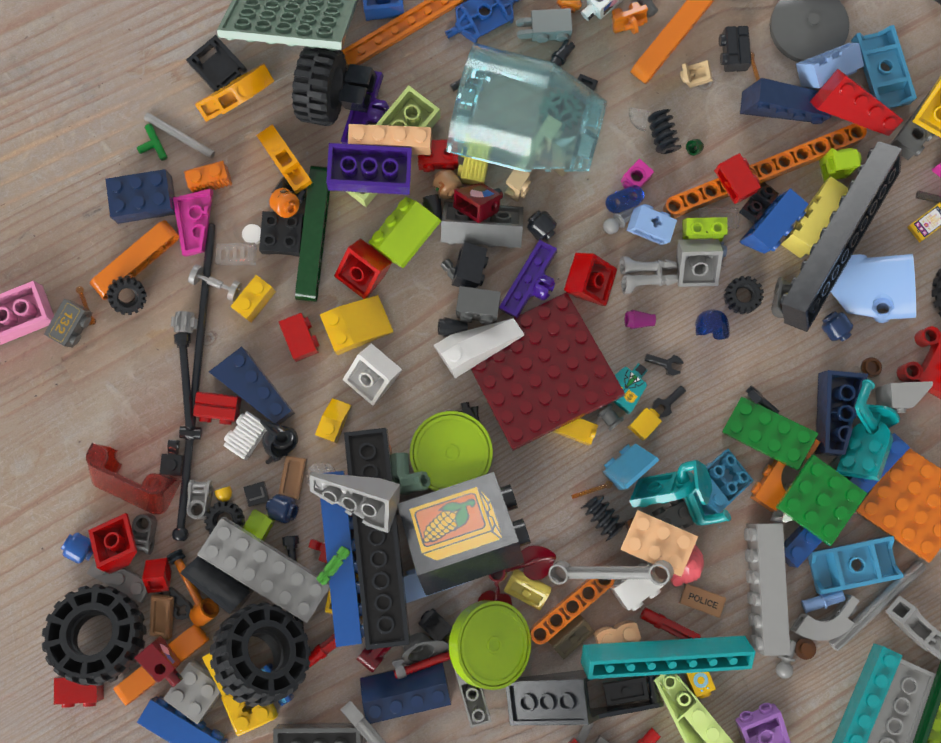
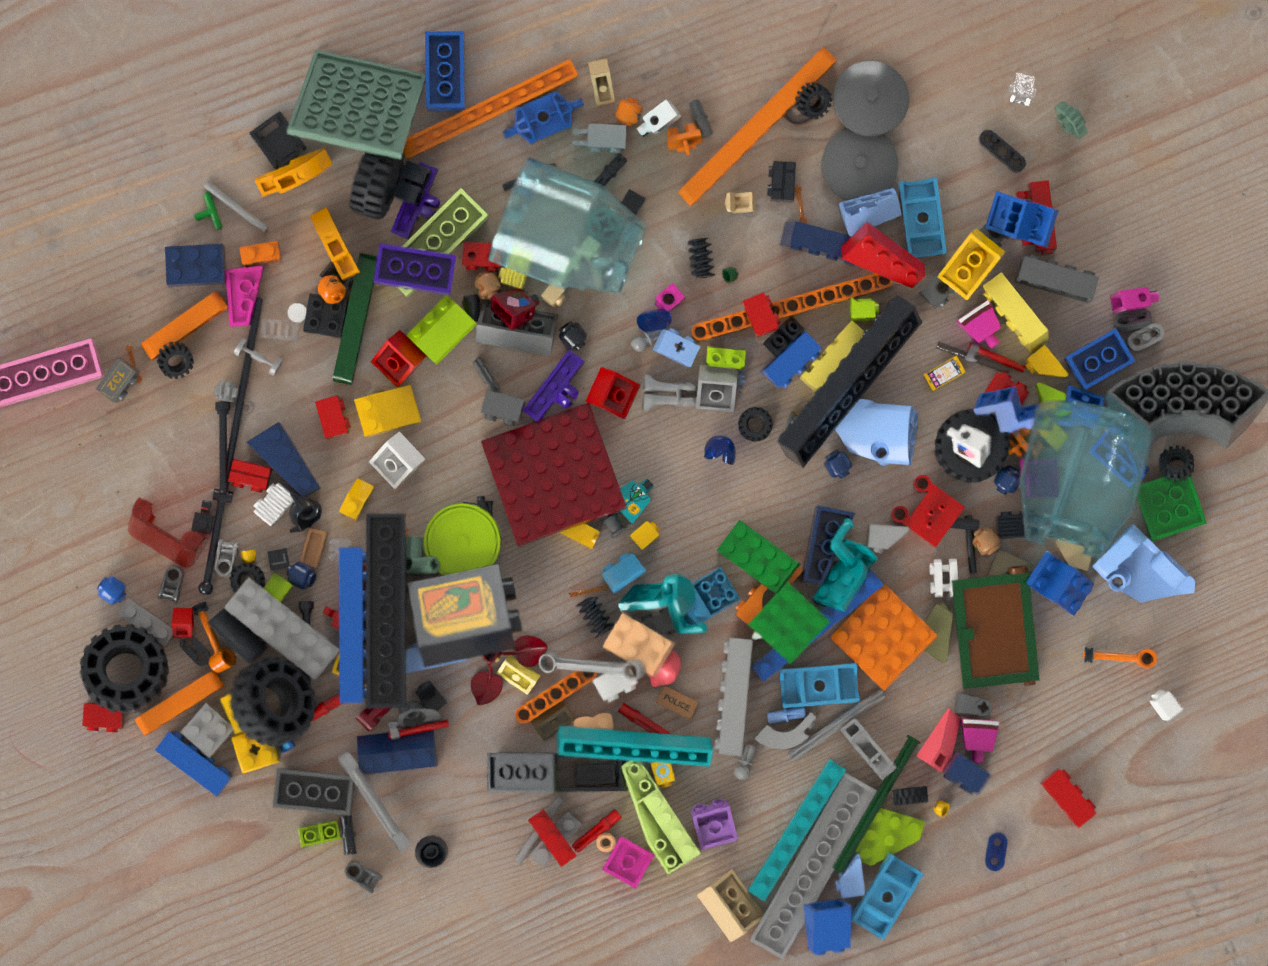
camera: 10 degrees right, 5 degrees up
(113, 544) = (147, 590): red slope -> none
(156, 656) = (178, 691): dark red torso -> none
(161, 616) = (183, 660): medium nougat tile -> none
(253, 298) = (293, 376): yellow brick -> none
(333, 565) = (344, 631): bright green axle -> none
(367, 497) = (380, 574): light grey wedge -> none
(396, 136) = (437, 242): light nougat brick -> none
(451, 326) = (476, 424): black cone -> none
(470, 266) = (499, 369): black brick -> none
(471, 347) = (493, 445): white wedge -> none
(474, 703) = (456, 757): light grey slope -> none
(490, 644) = (477, 717): lime brick -> none
(638, 319) = (652, 436): magenta cone -> none
(665, 363) = (673, 480): black bar -> none
(666, 403) = (670, 517): black bar -> none
(757, 397) = (752, 521): black bar -> none
(805, 648) = (764, 755): reddish brown plate -> none
(871, 366) = (865, 506): reddish brown plate -> none

